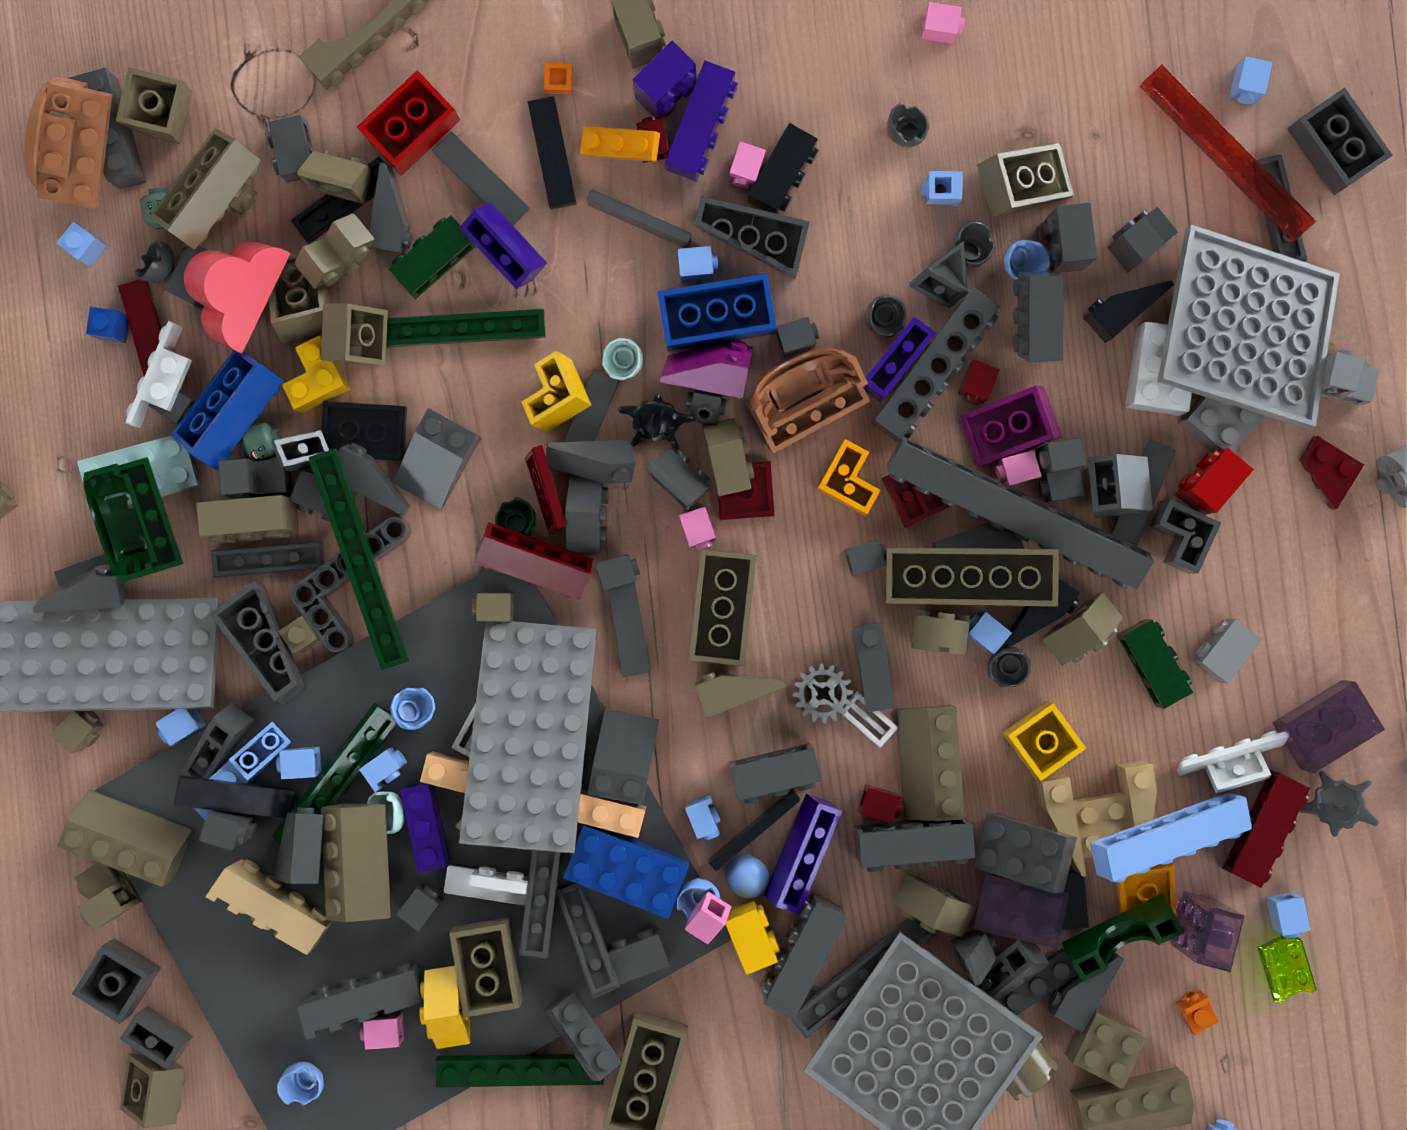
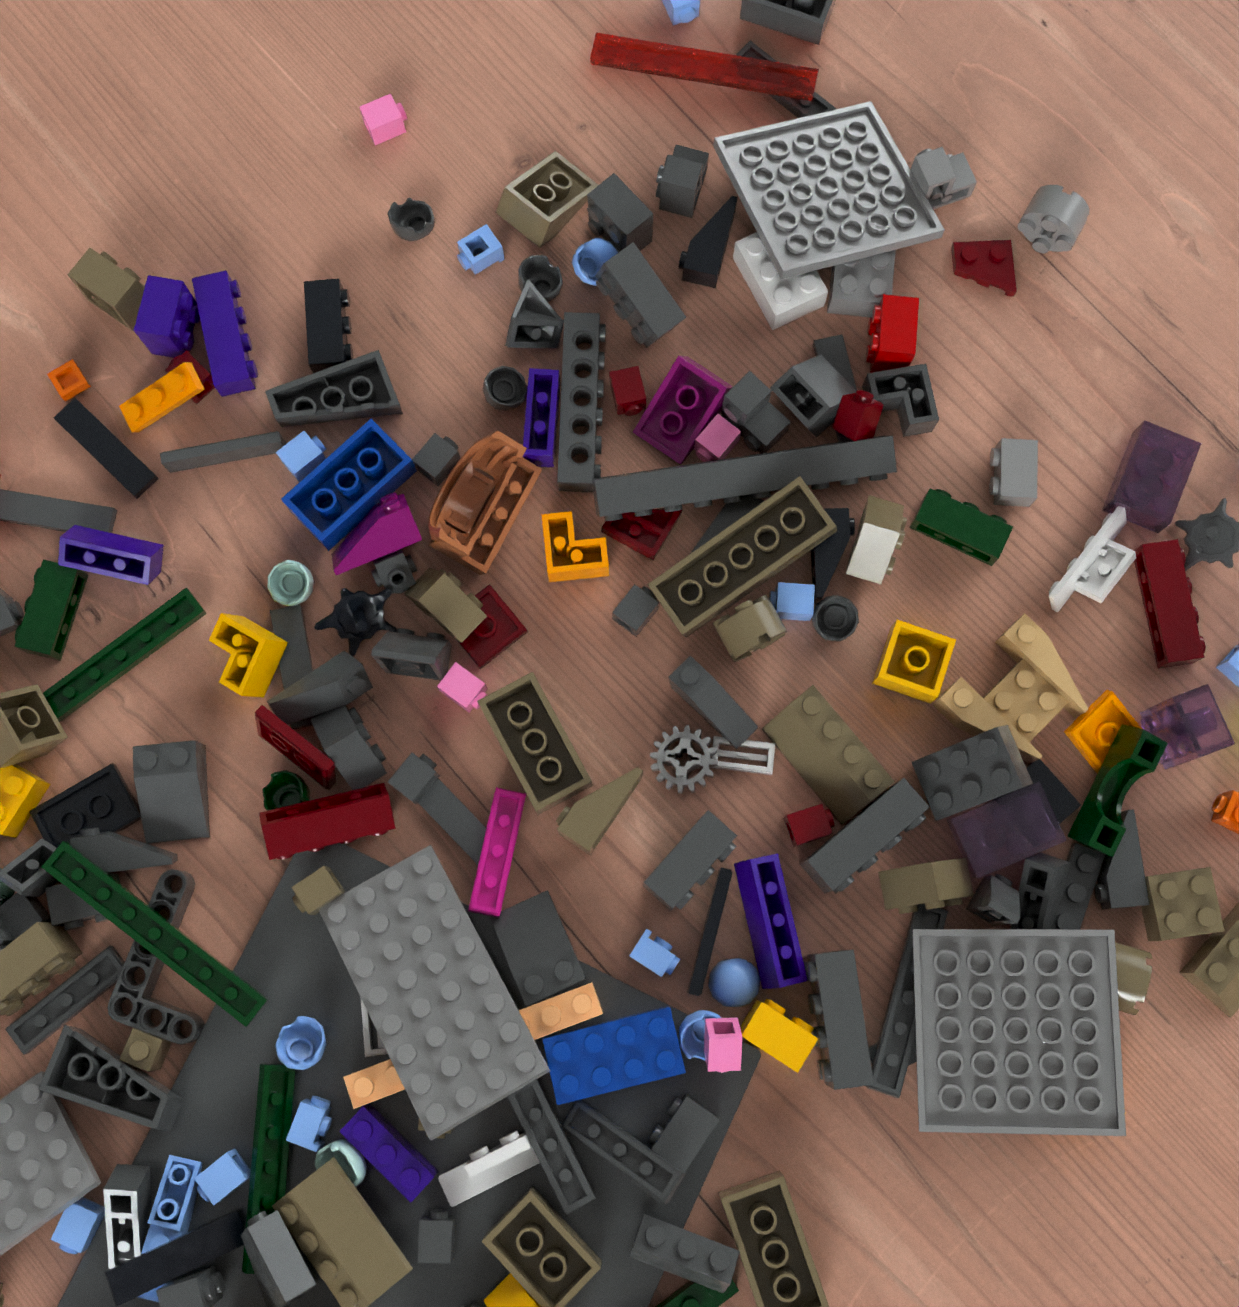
camera: 35 degrees left, 10 degrees down
(641, 667) = (497, 852): none -> dark pink tile
(746, 165) = (290, 343): bright pink brick -> none
(1138, 527) = (858, 415): none -> dark red brick
(1170, 837) = (1089, 667): light blue brick -> none

